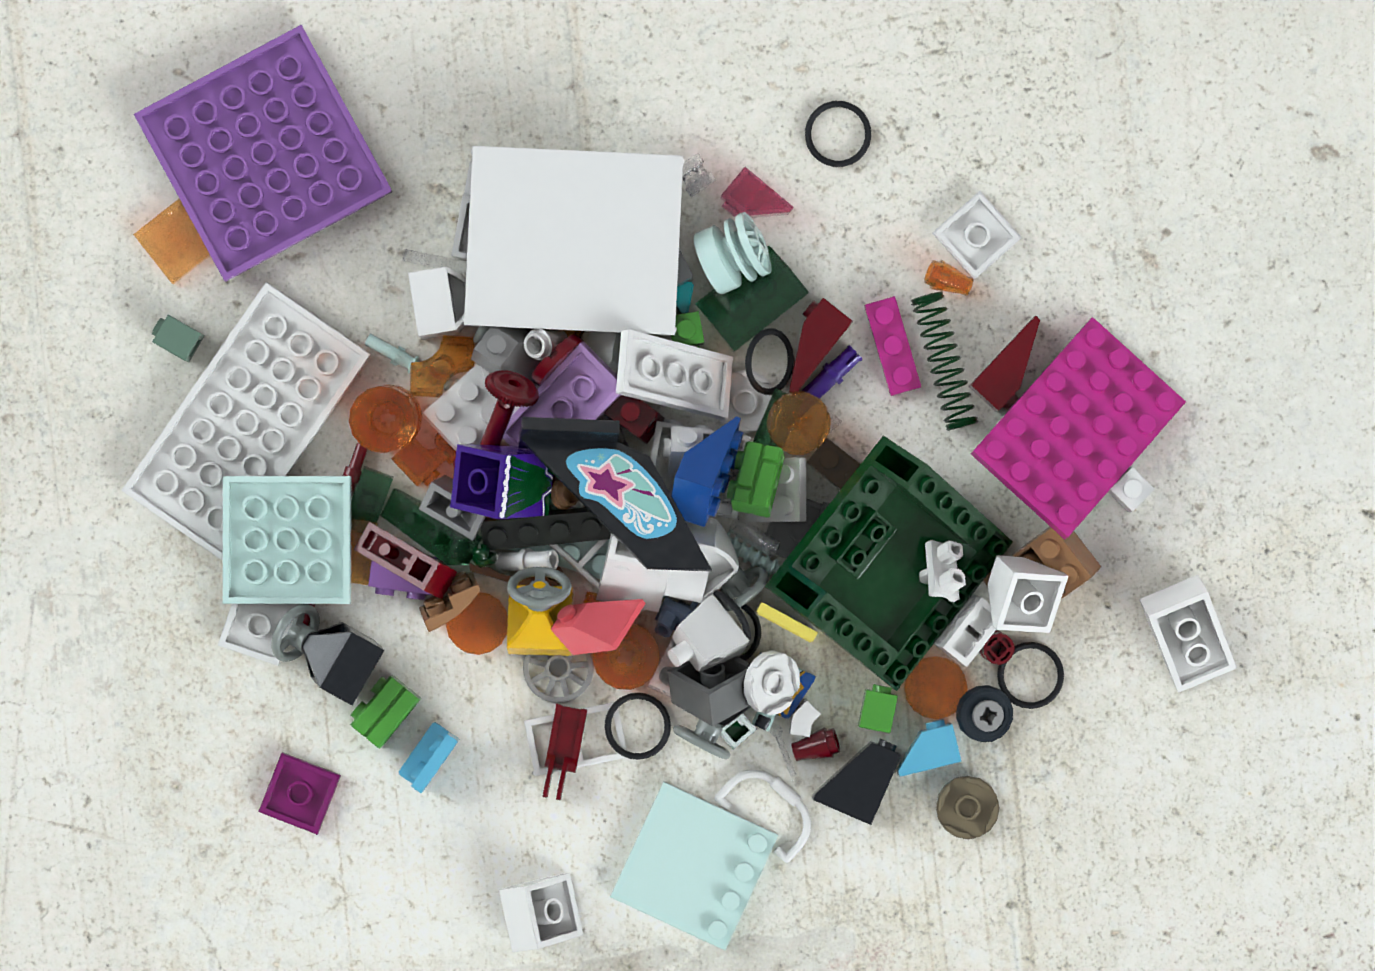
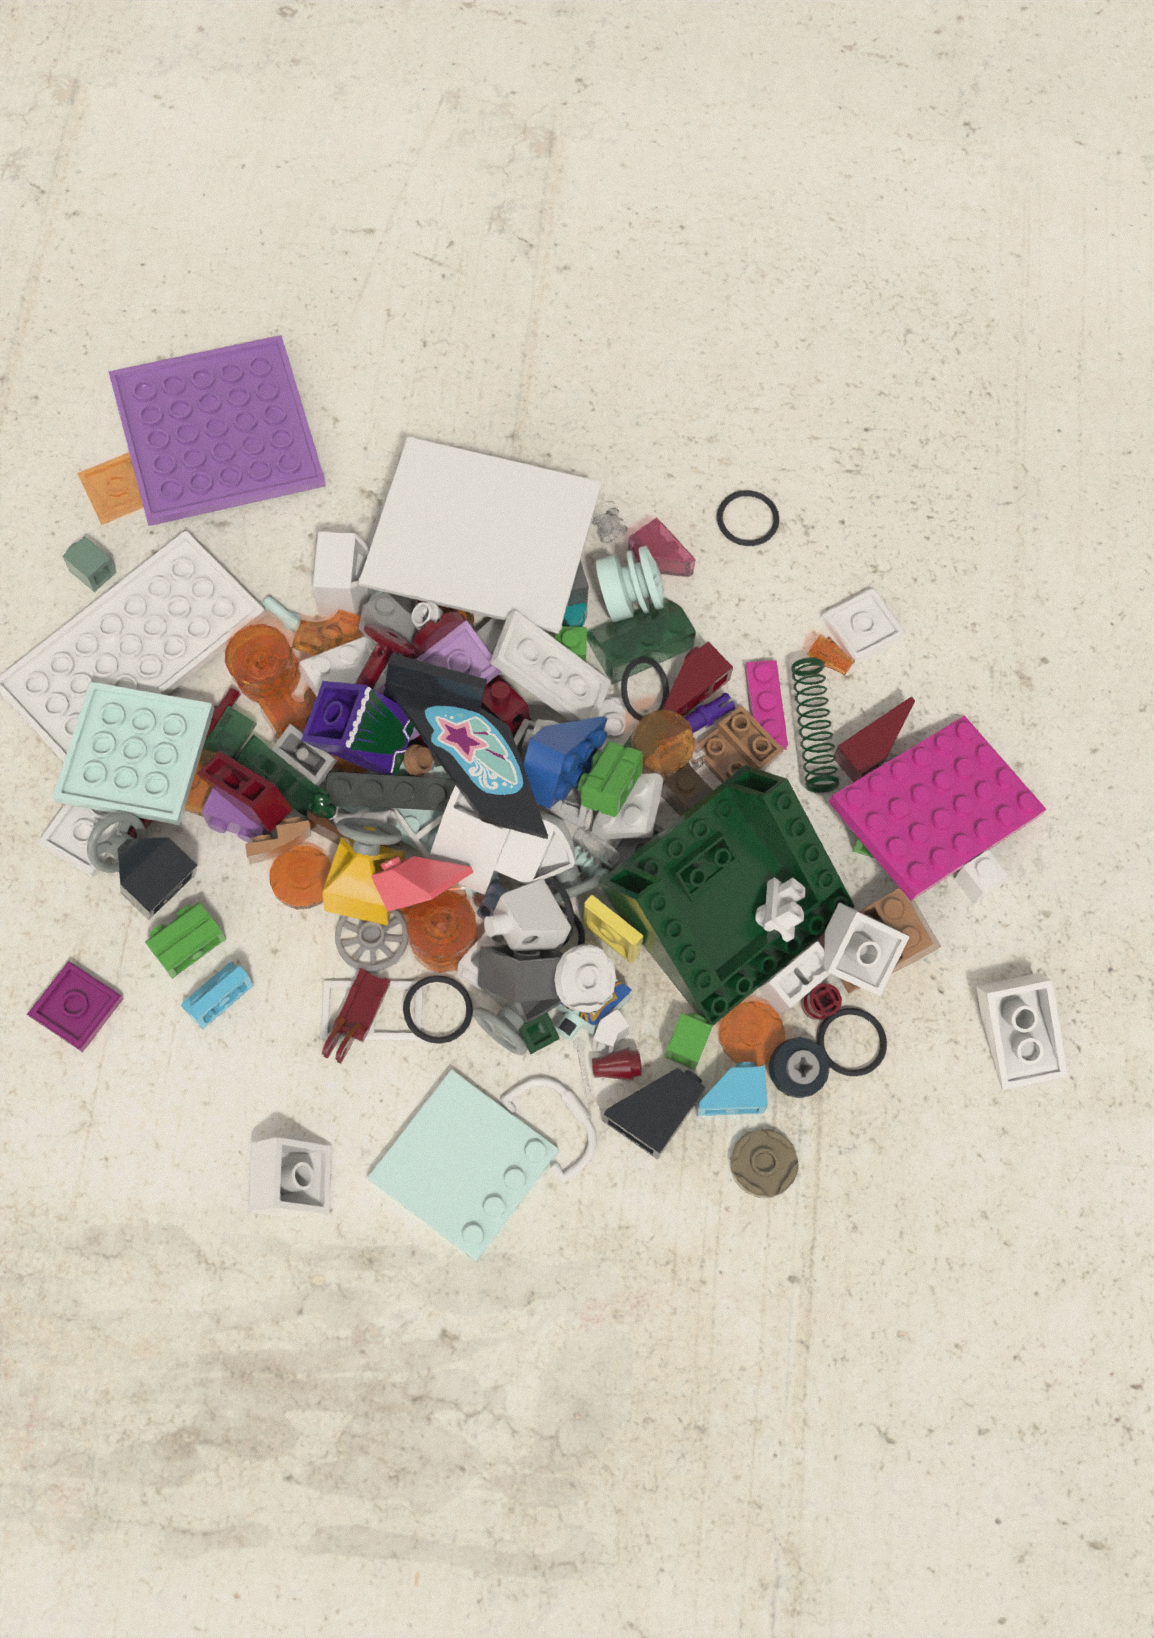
camera: 10 degrees right, 20 degrees down
(873, 403) = (738, 743): none -> medium nougat slope

